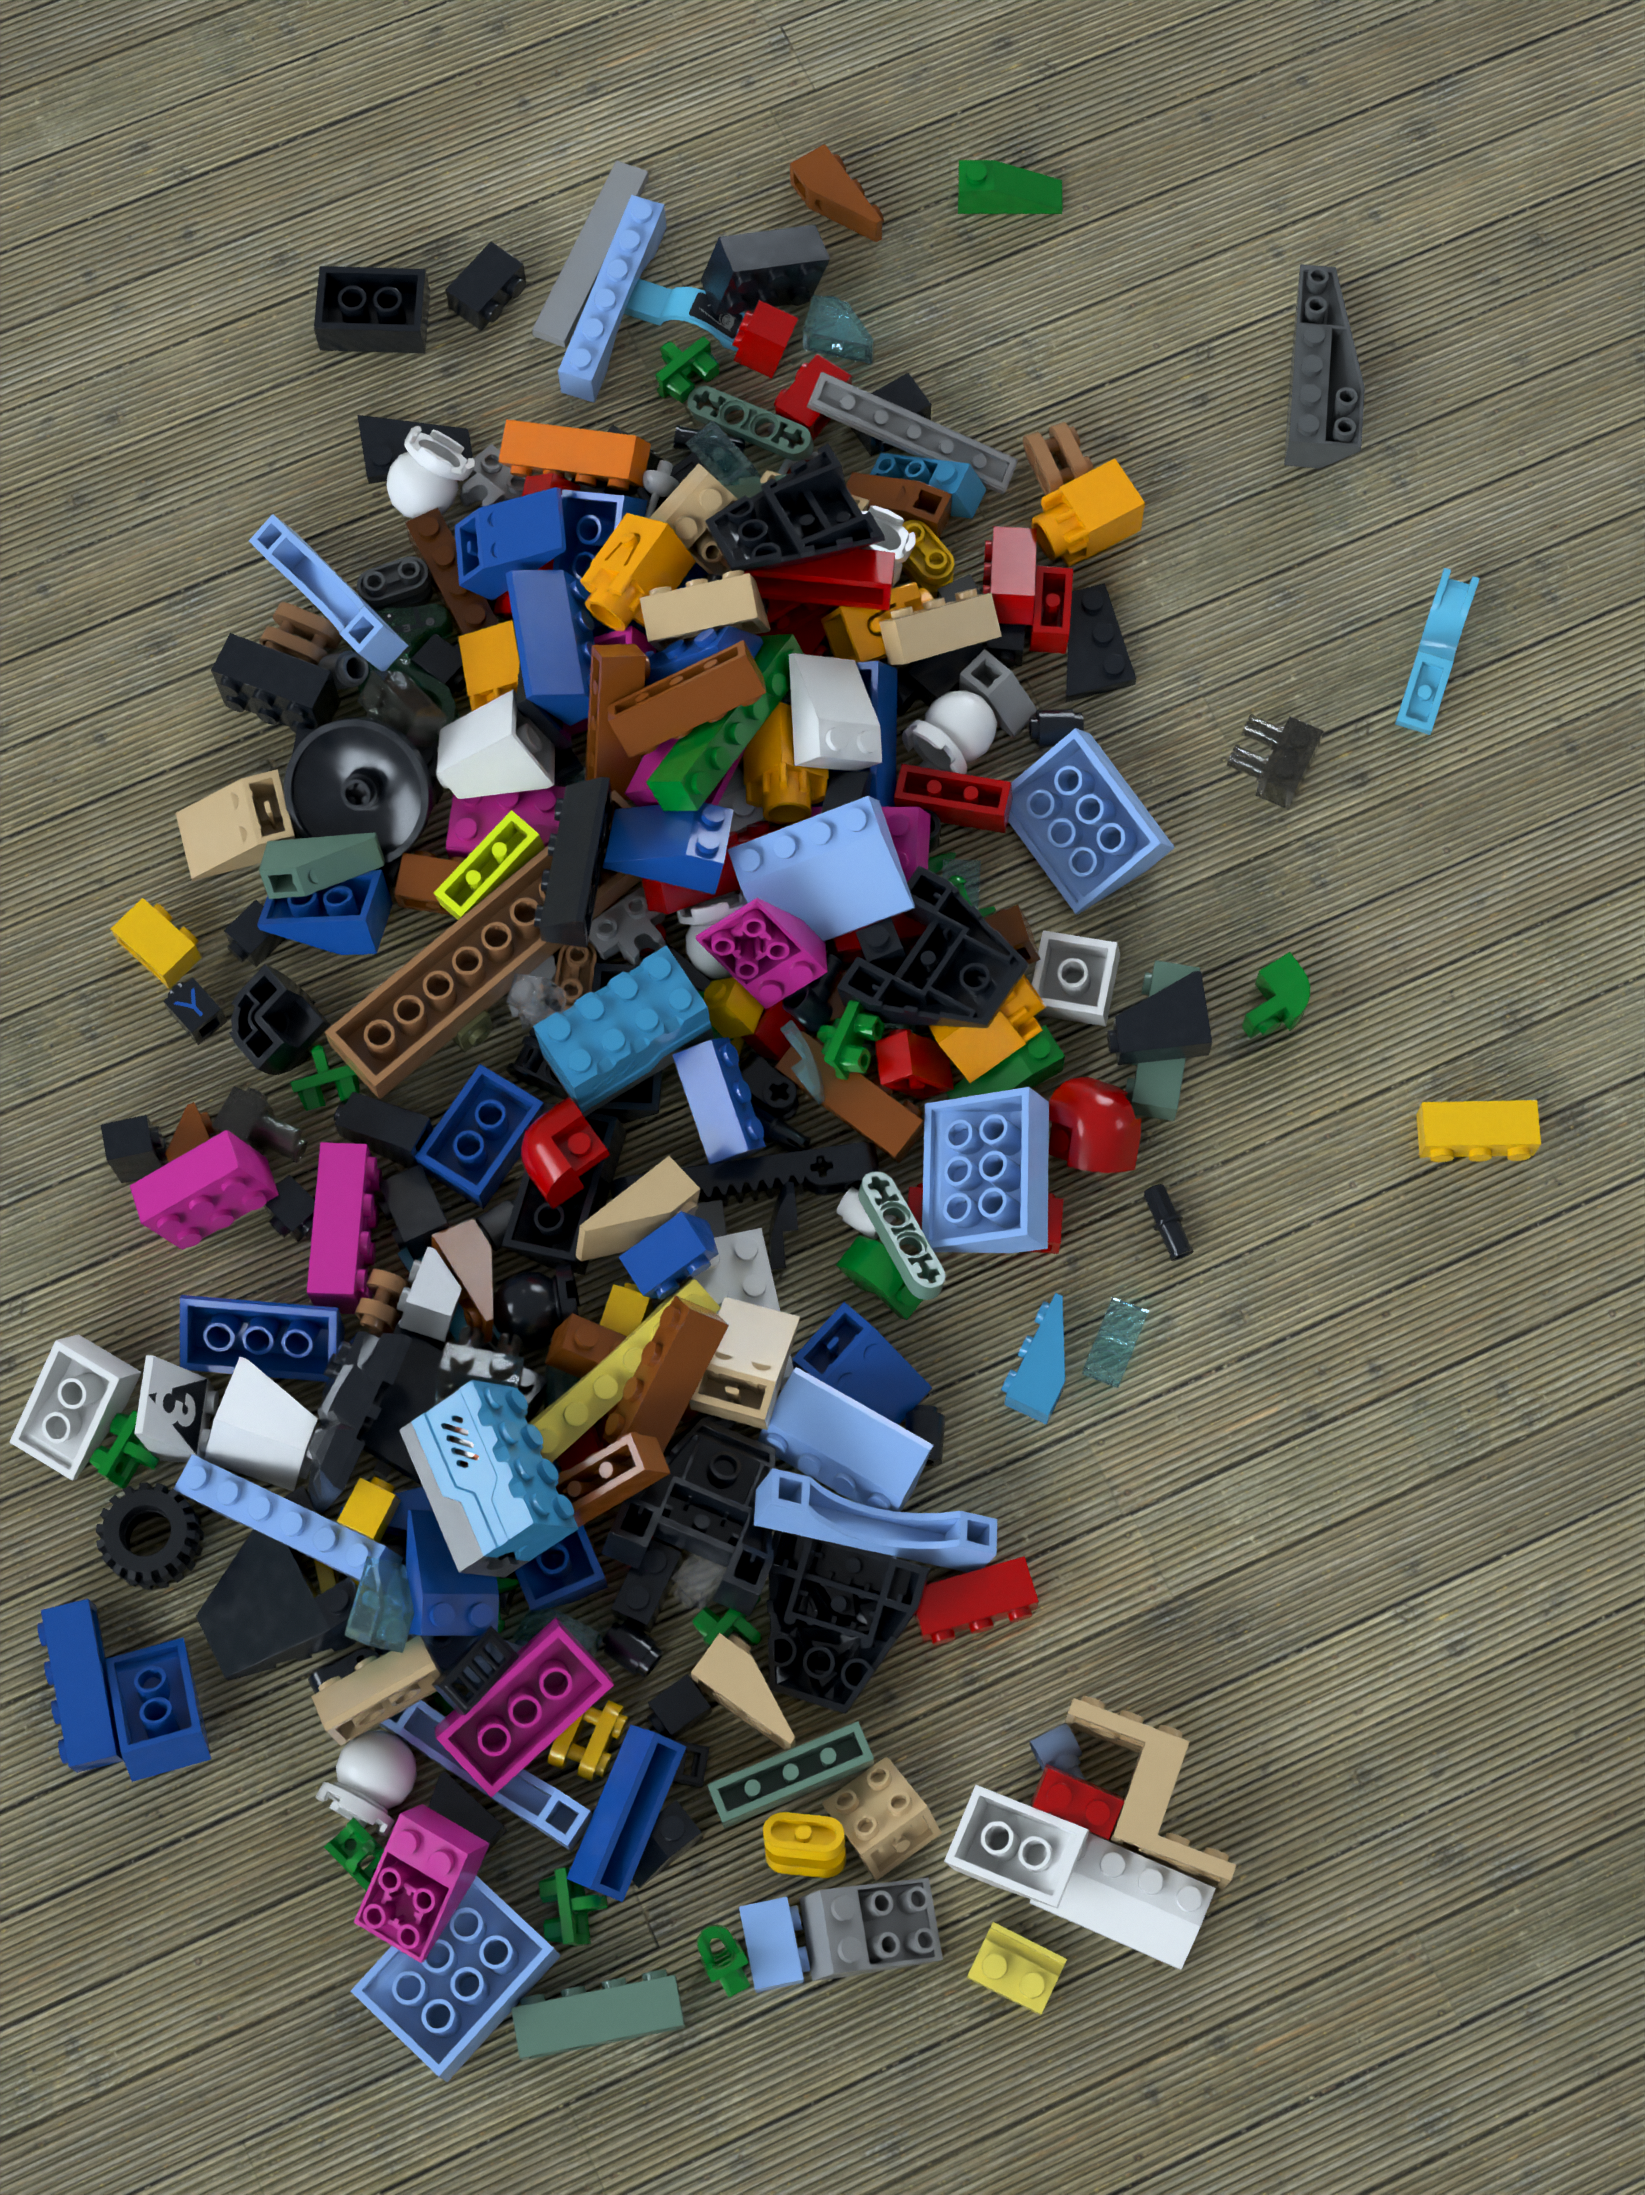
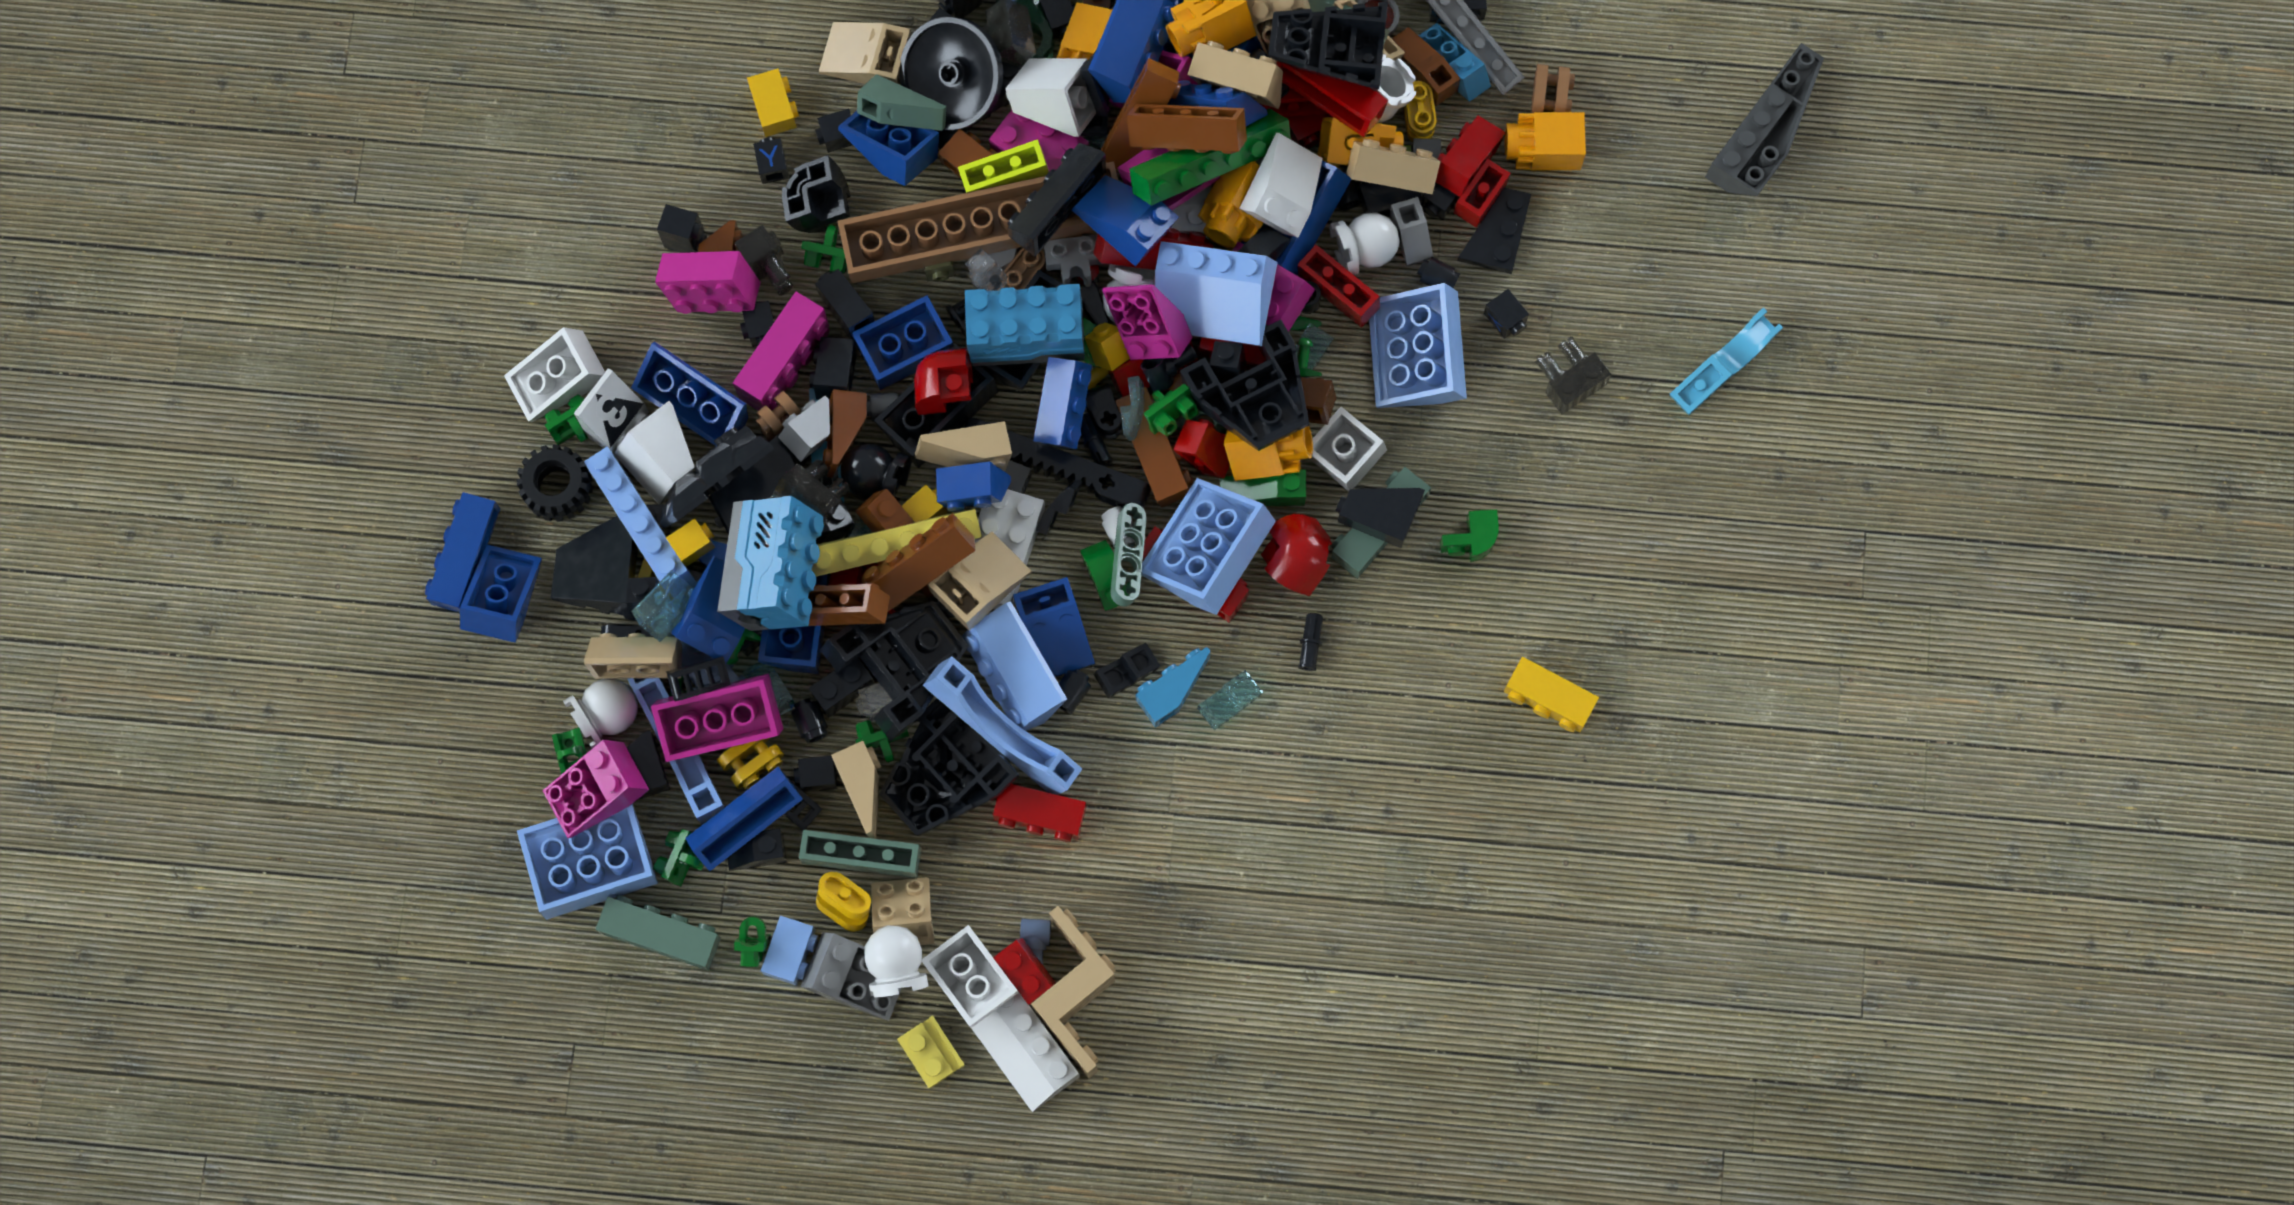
camera: 30 degrees right, 5 degrees up
(914, 1879) = (893, 959): none -> white tile
(974, 1375) = (1127, 670): none -> black slope
(1161, 729) = (1506, 314): none -> black brick

